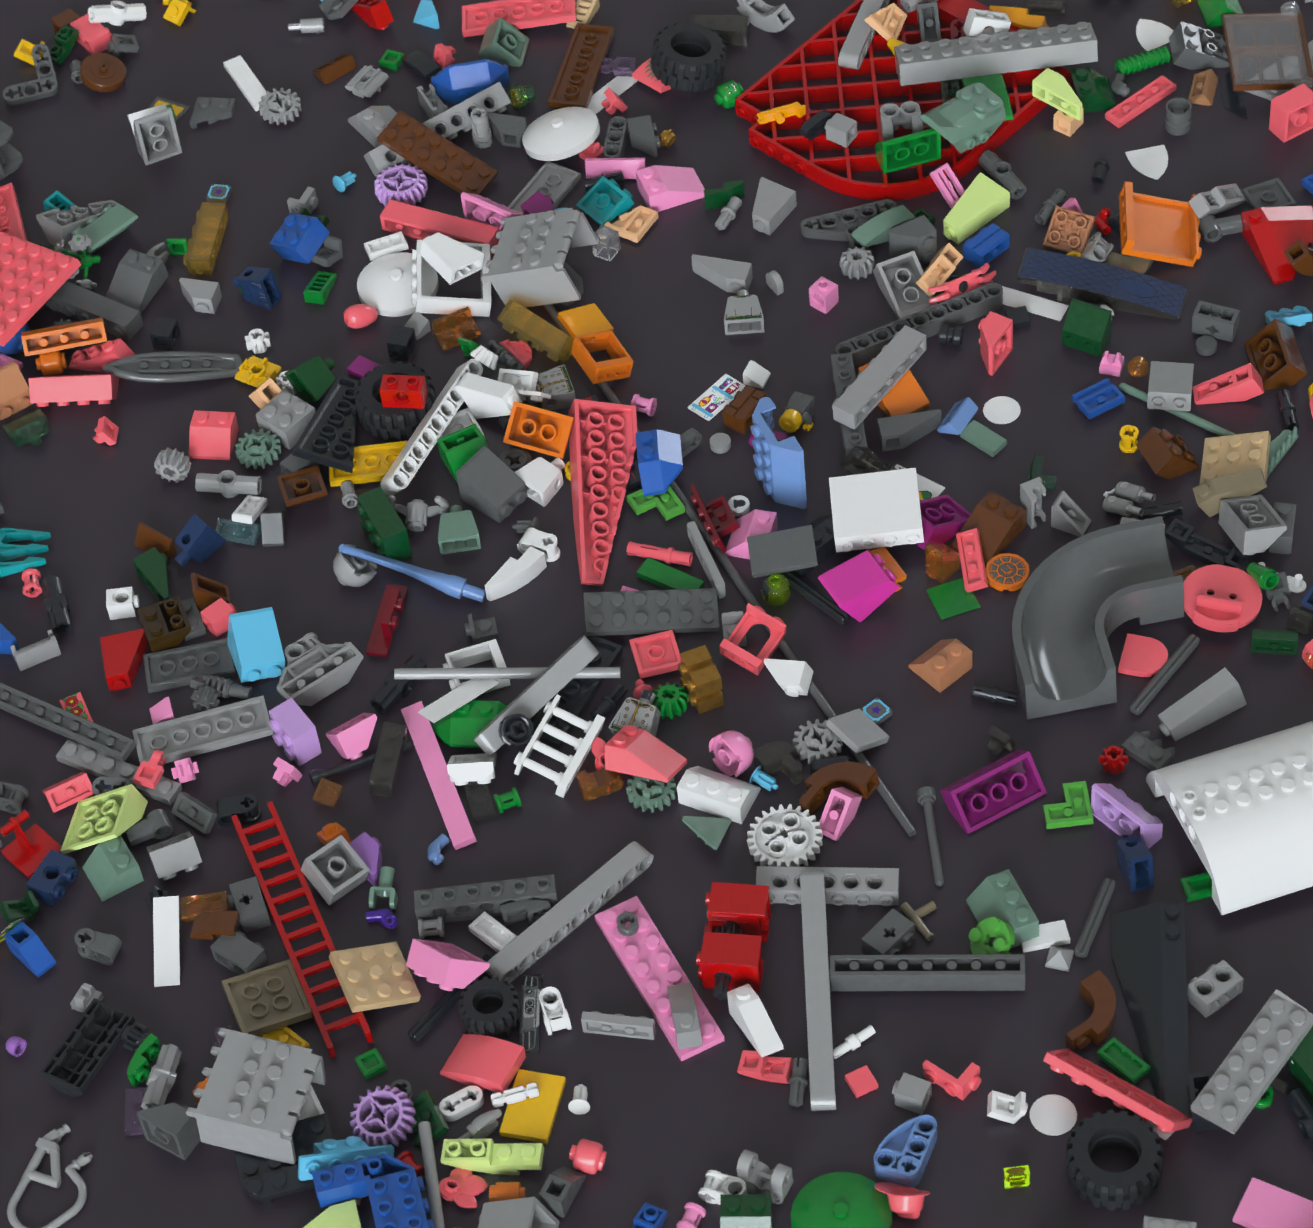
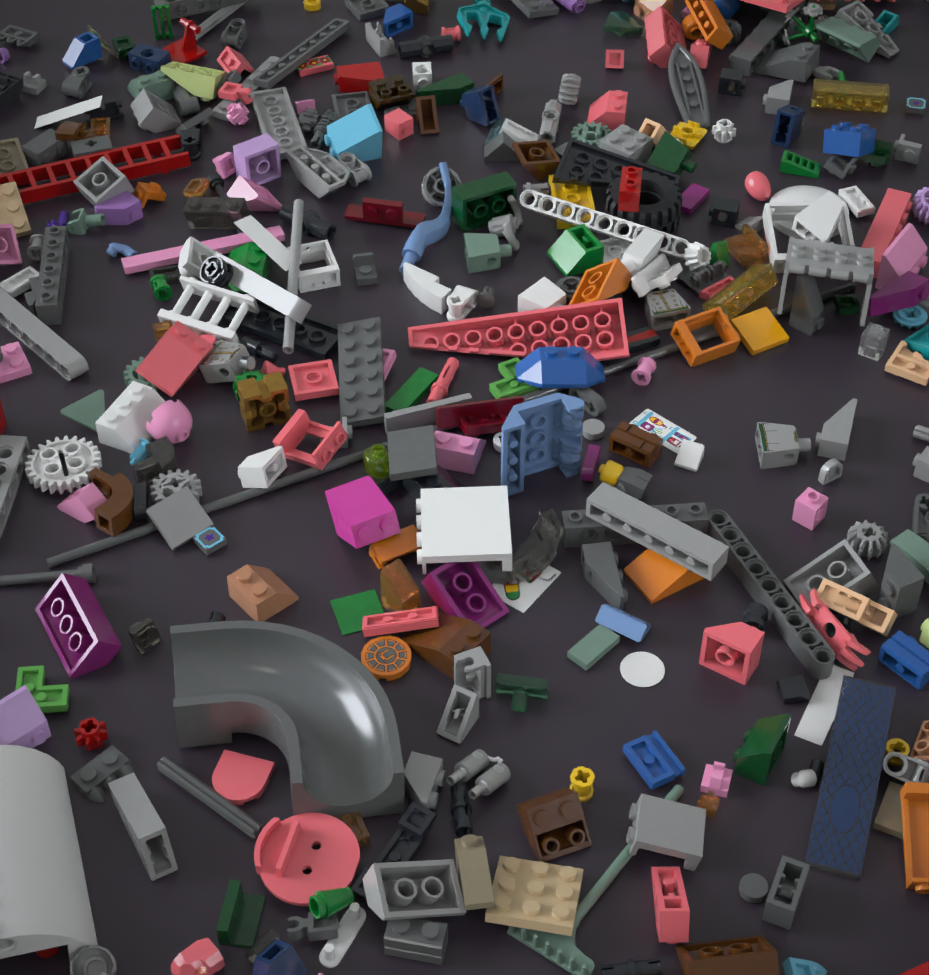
camera: 85 degrees right, 5 degrees down
(490, 485) = (531, 260): dark grey slope -> none

